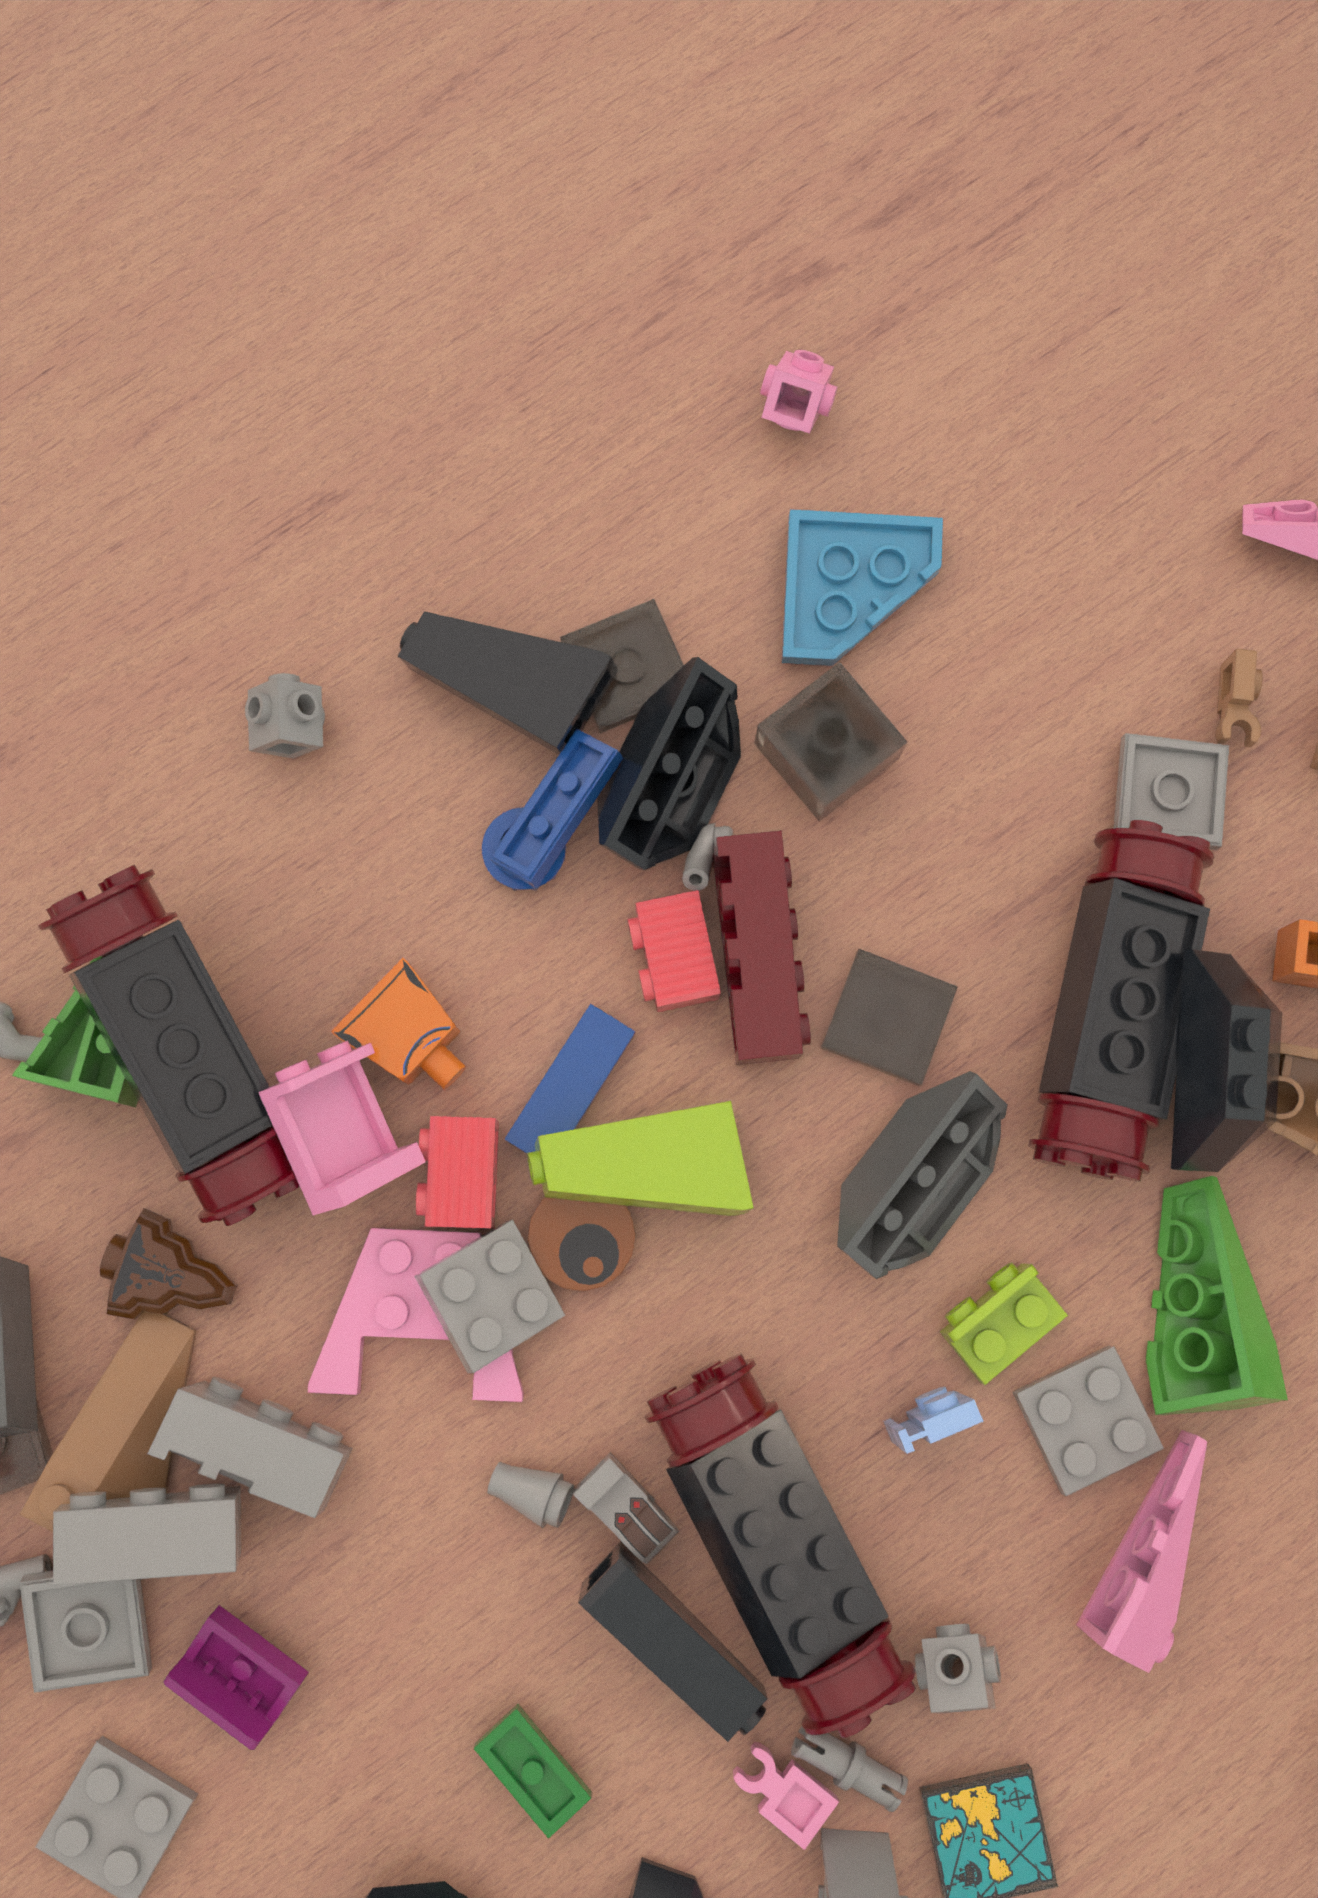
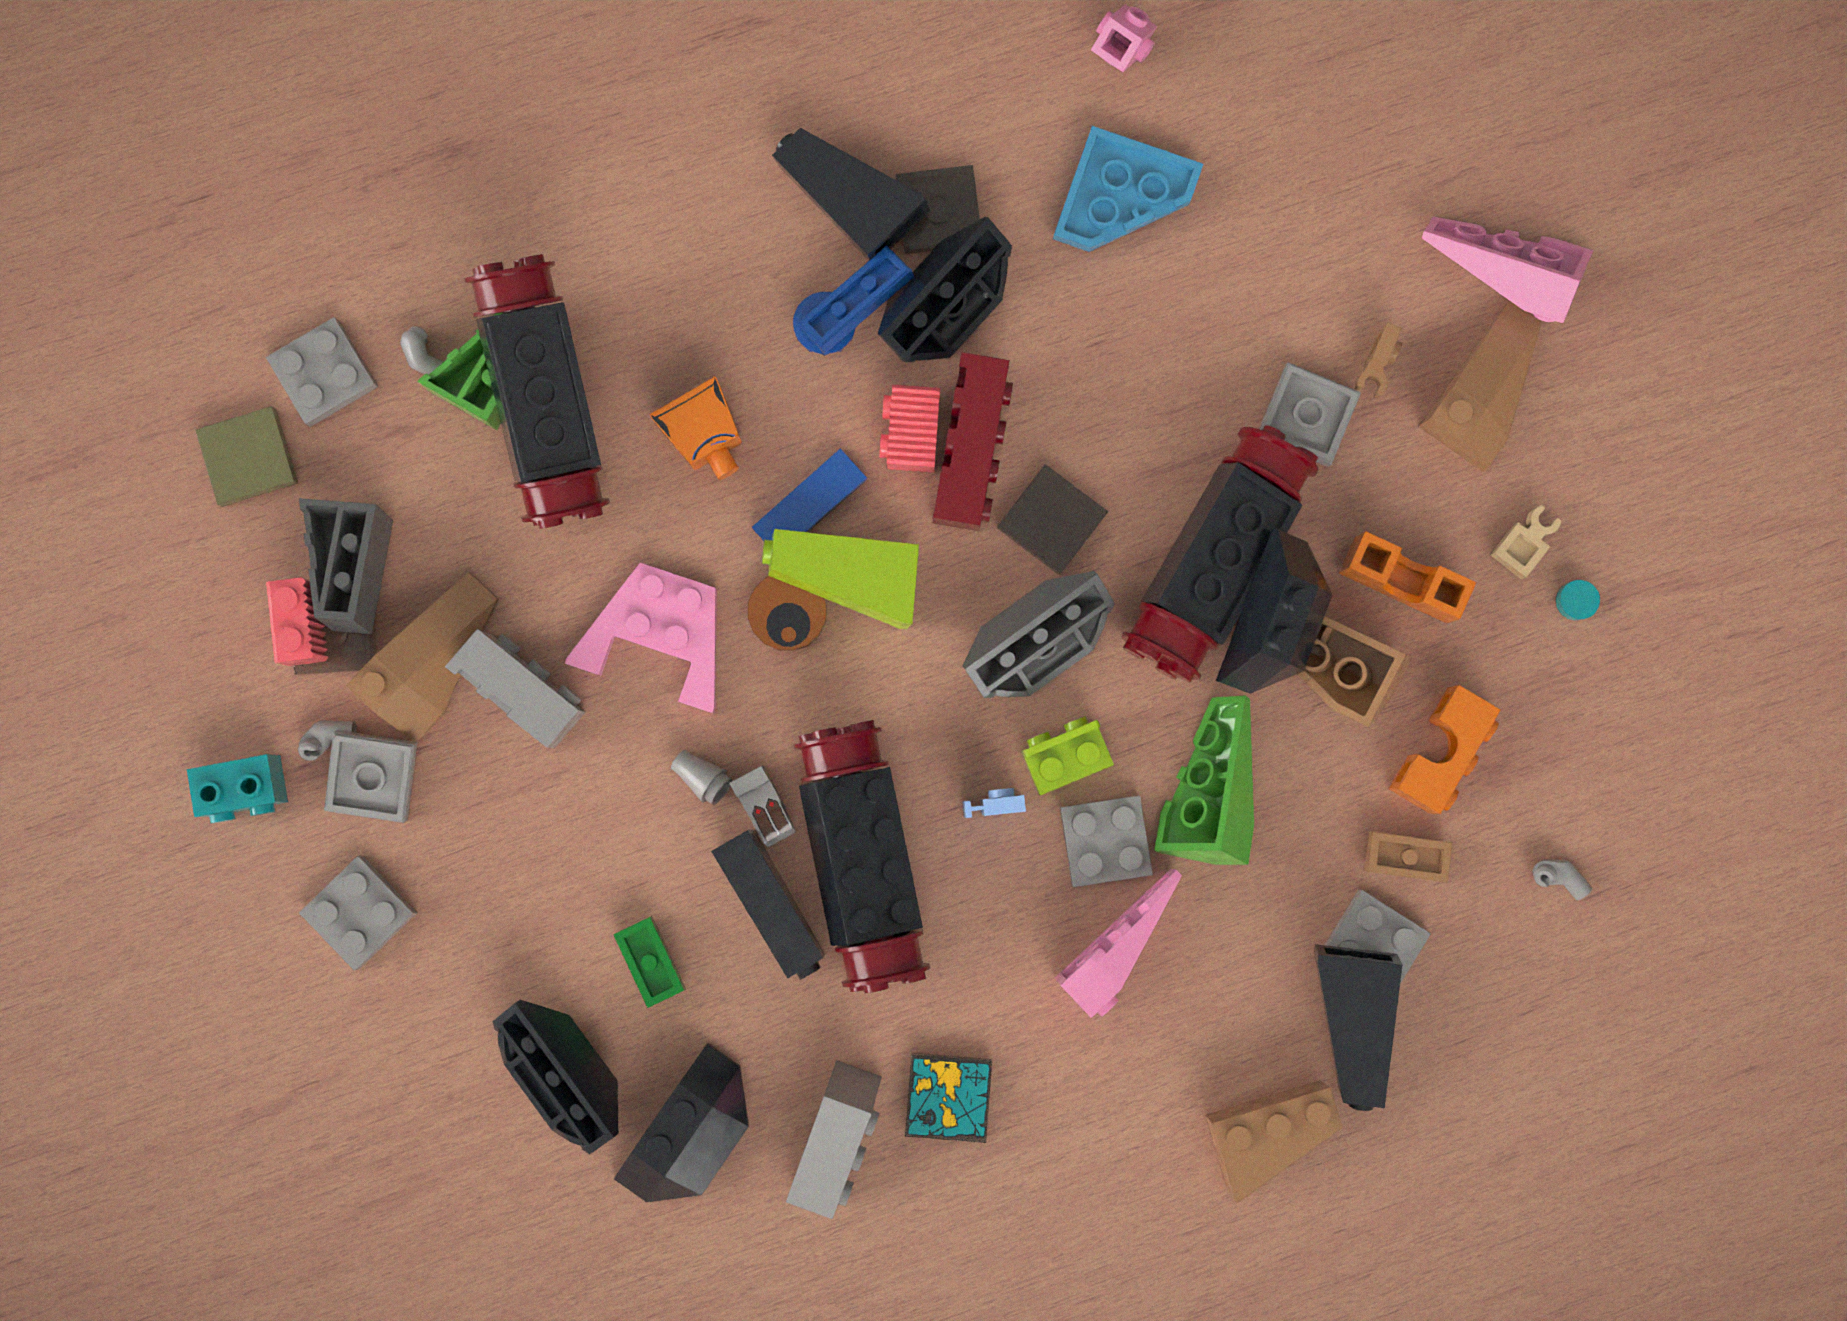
camera: 15 degrees right, 5 degrees up
(147, 1534) = (430, 722): light grey wedge -> none
(159, 1271) = (484, 550): reddish brown rock -> none
(236, 1678) = (464, 840): magenta bracket -> none
(285, 716) = (678, 177): light grey brick -> none
(335, 1129) = (633, 482): bright pink panel -> none
(460, 1172) = (713, 541): coral brick -> none
(489, 1296) = (710, 632): light grey plate -> none
(700, 857) = (949, 366): light grey arm -> none
(792, 1798) = (822, 1032): bright pink plate -> none
(829, 741) = (1068, 306): clear smoke brick -> none
(851, 1768) = (867, 1023): light grey pin -> none
(974, 1686) = (960, 979): light grey brick -> none

